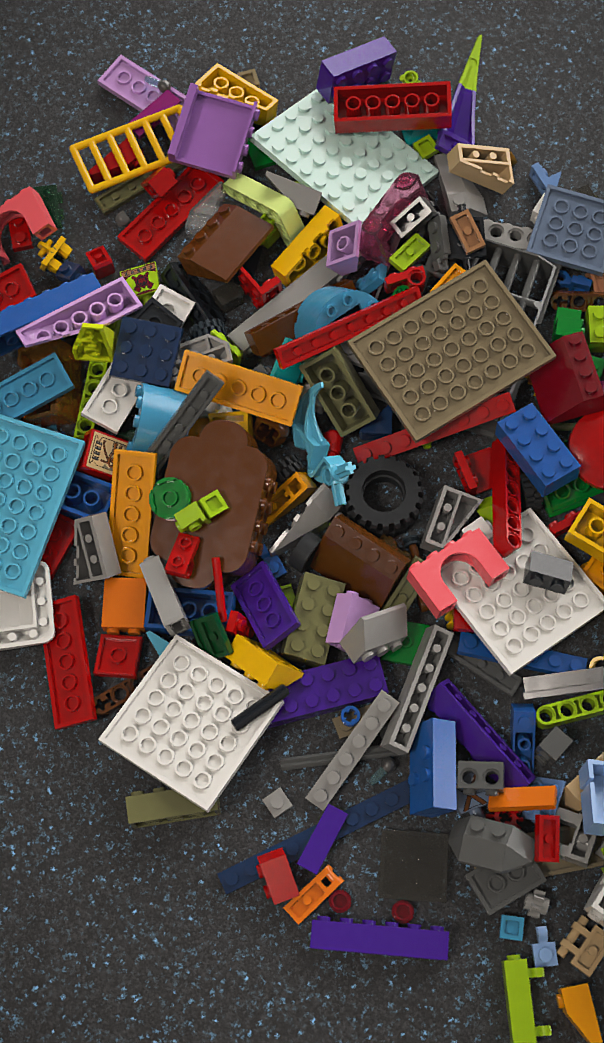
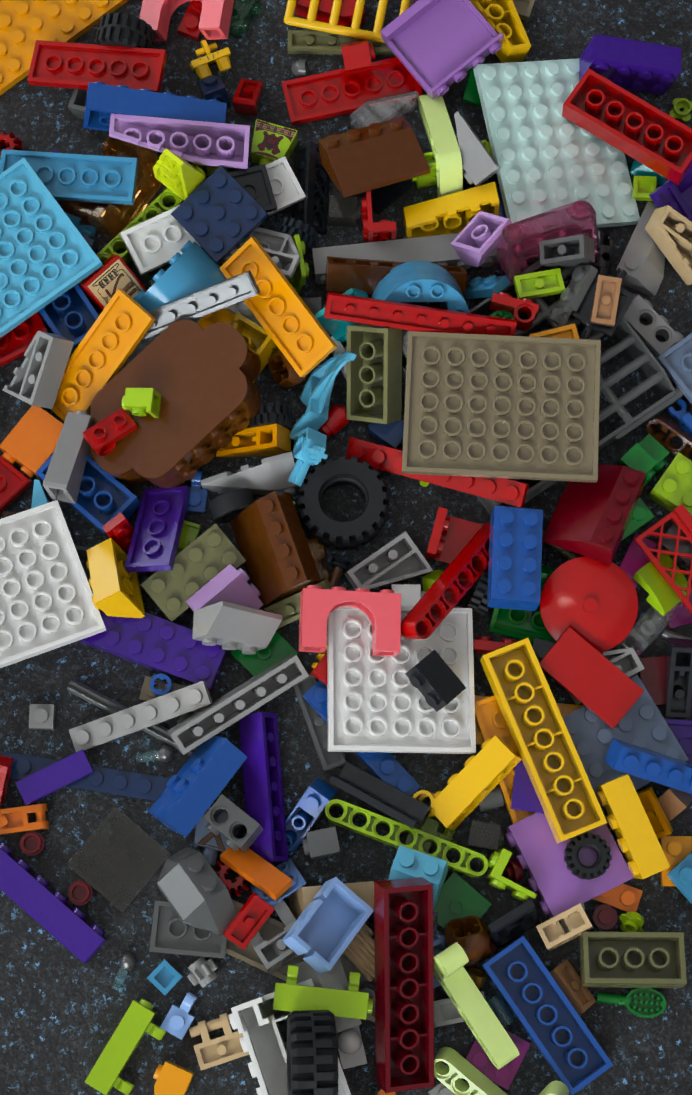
camera: 30 degrees right, 5 degrees up
(169, 497) = (137, 368): green tile -> none
(211, 635) = (86, 523): dark green plate -> none
(213, 504) = (168, 402): lime plate -> none
(219, 589) = (122, 485): red bar -> none
(260, 707) = (75, 619): black axle -> none
(475, 936) = (127, 962): none -> piece

